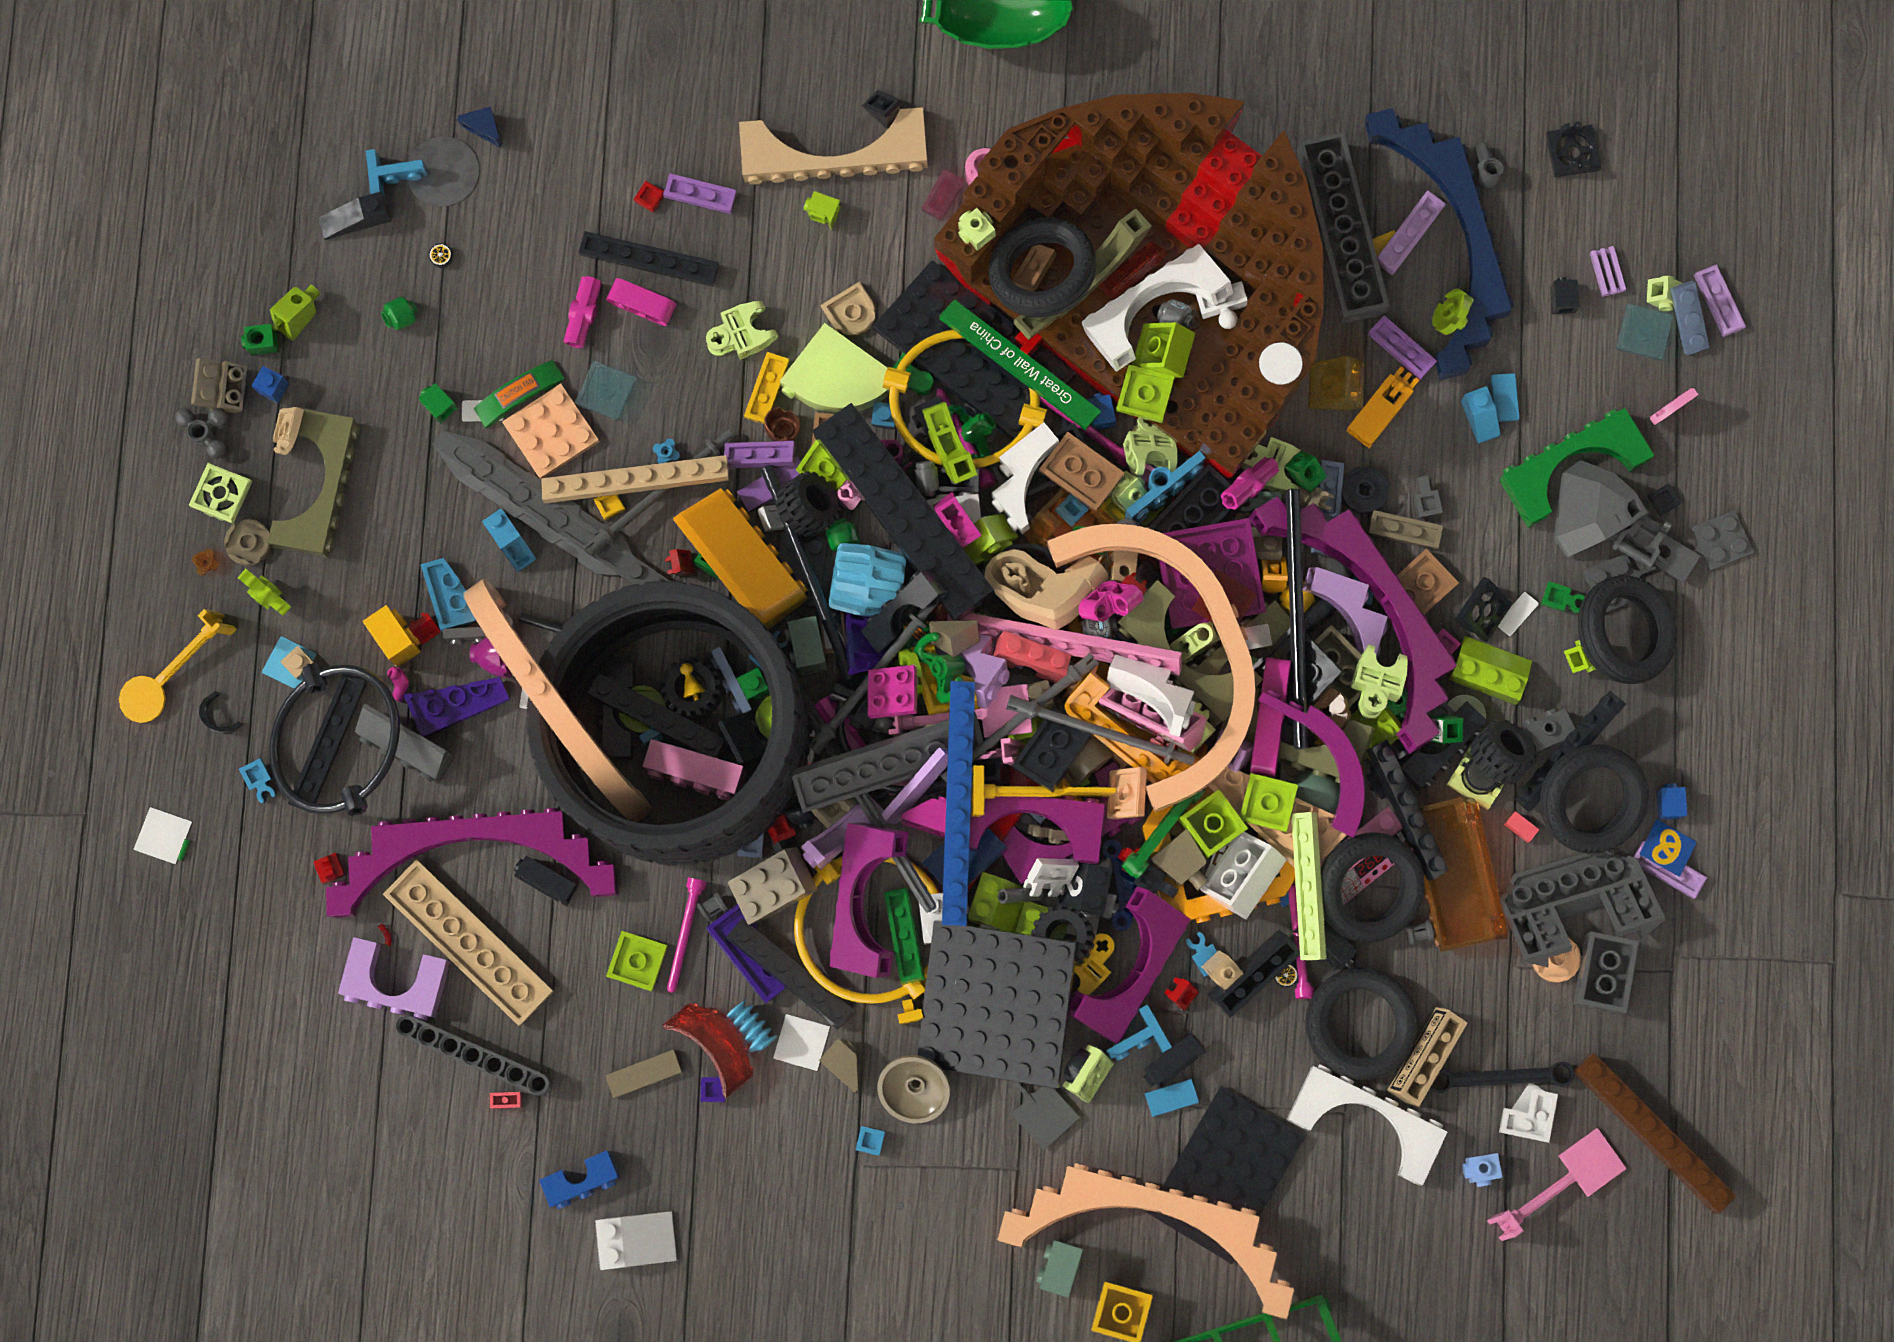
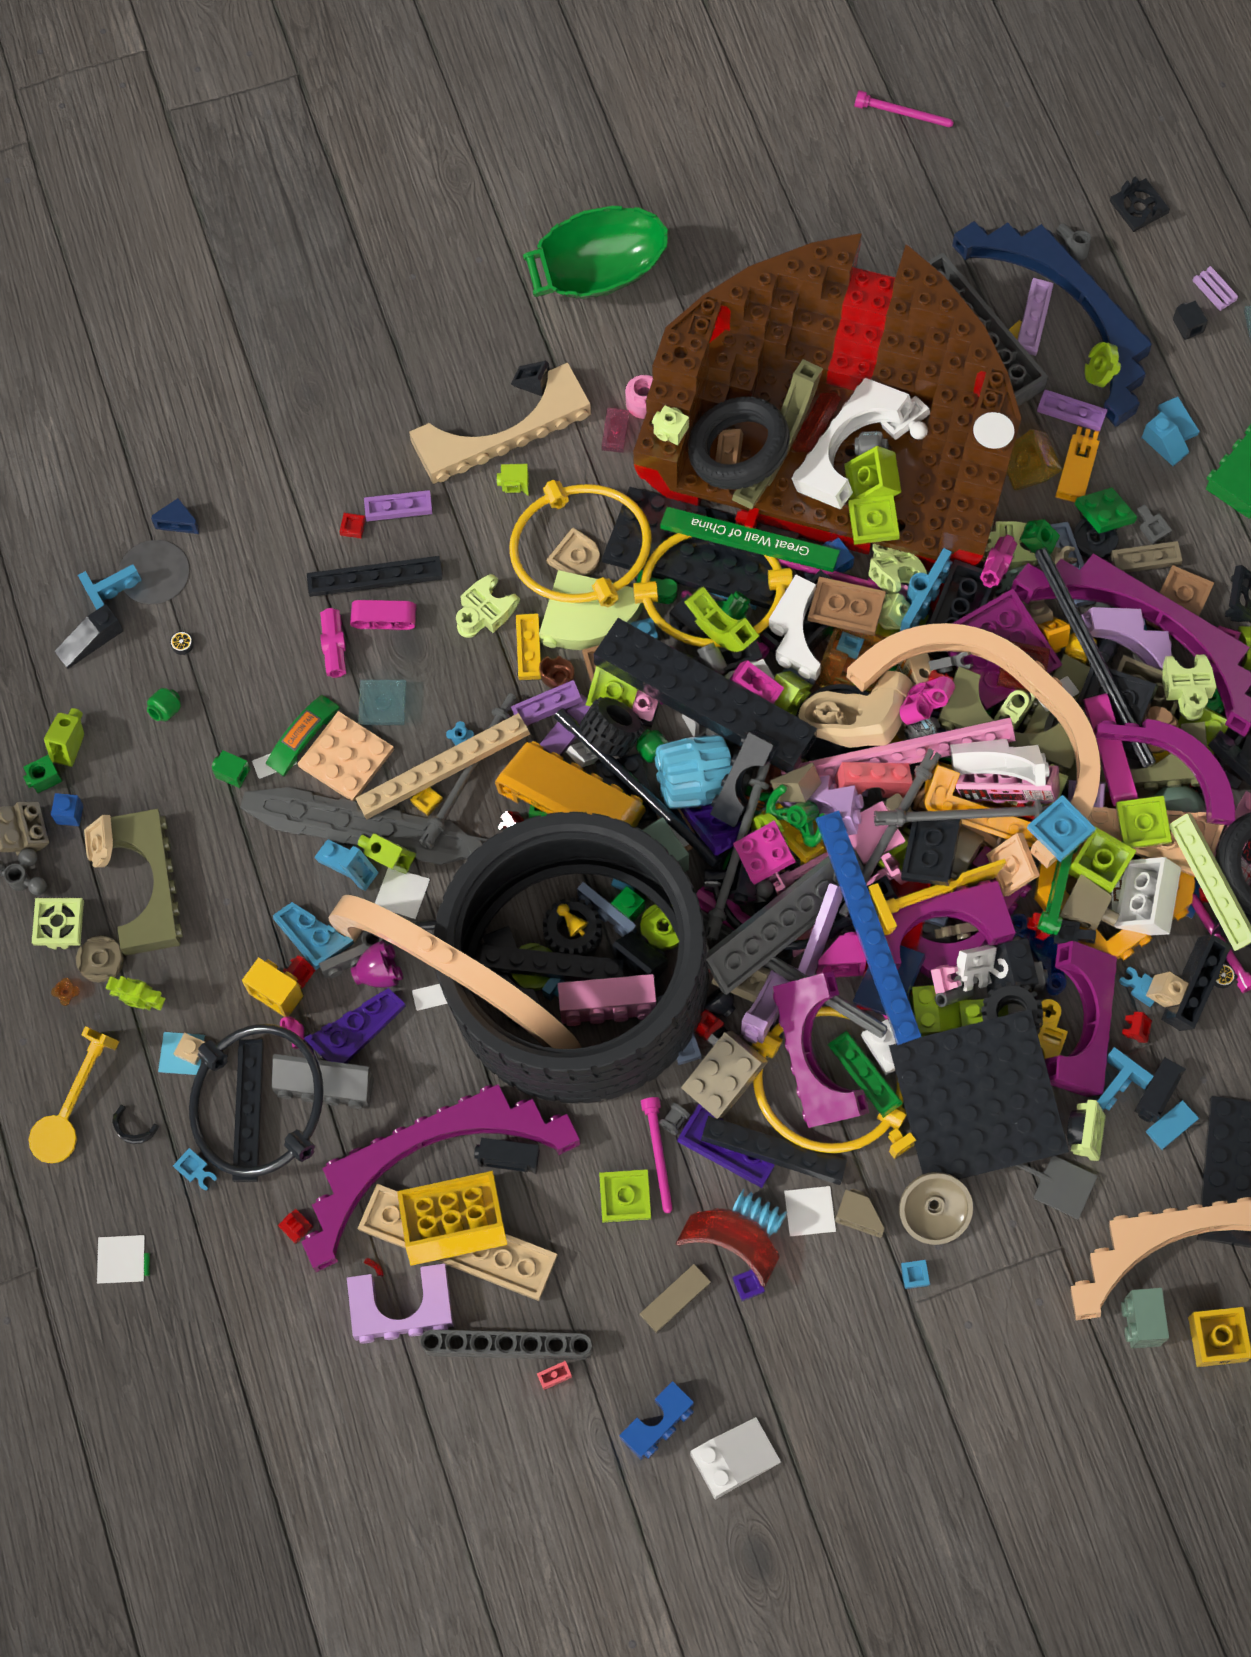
camera: 25 degrees left, 10 degrees down
(468, 920) = (451, 1218): none -> yellow slope
(548, 546) = (386, 852): none -> lime torso
(550, 587) = (402, 892): none -> white sticker
(856, 245) = (603, 588): none -> yellow piece
(1013, 877) = (942, 978): none -> bright pink tile
(1150, 569) = (946, 664): none -> dark grey plate
(1178, 782) = (1061, 828): none -> dark azure plate
(1386, 466) = (1105, 510): none -> green plate

